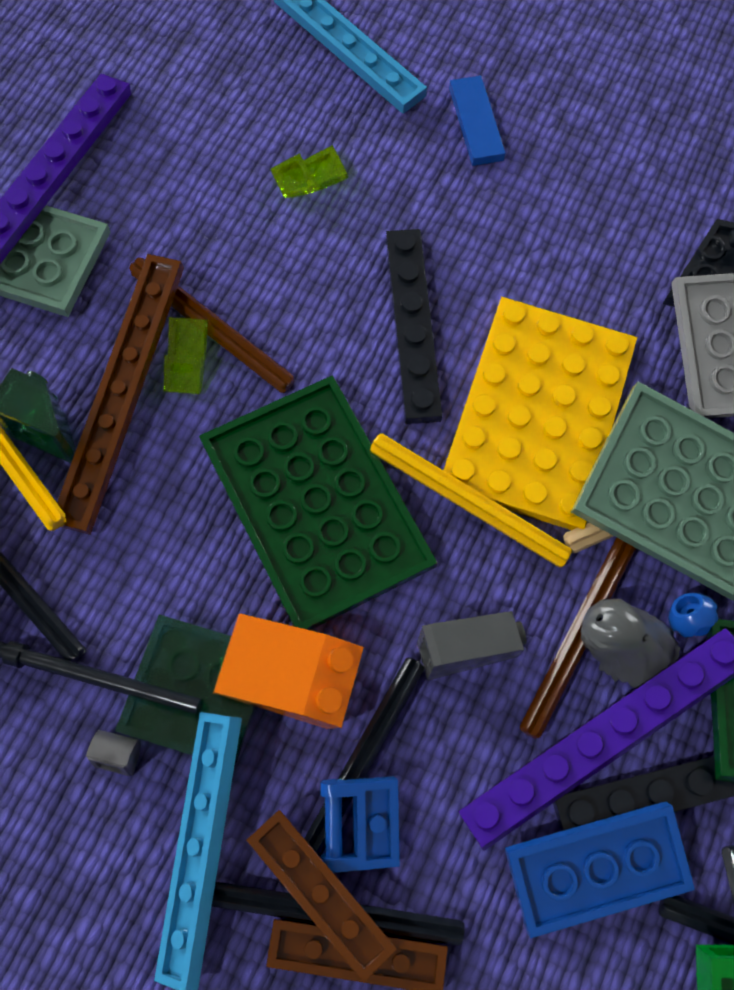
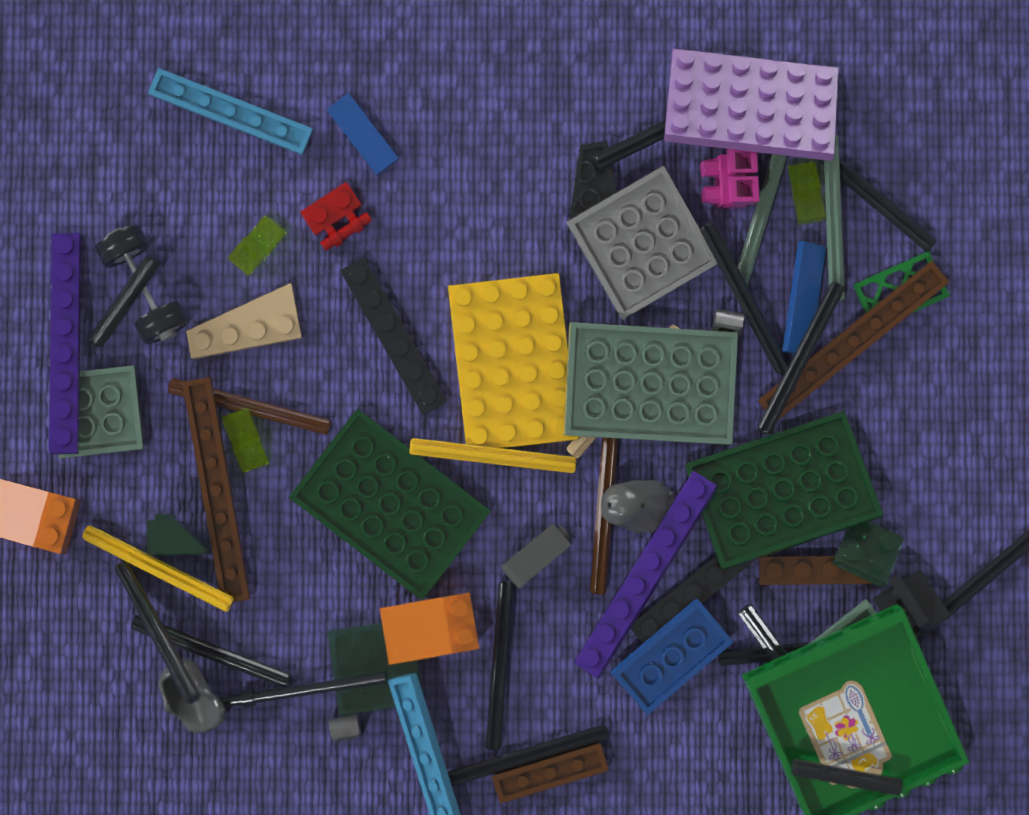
camera: 20 degrees left, 15 degrees up
(135, 153) = (124, 300): none -> black axle
(165, 108) = (123, 246): none -> black axle
(259, 246) = (252, 325): none -> tan wing
(322, 895) = (512, 749): reddish brown plate -> none
(373, 823) = (525, 694): blue plate -> none
(405, 174) = (332, 209): none -> red plate
(692, 614) = (671, 467): blue plate -> none

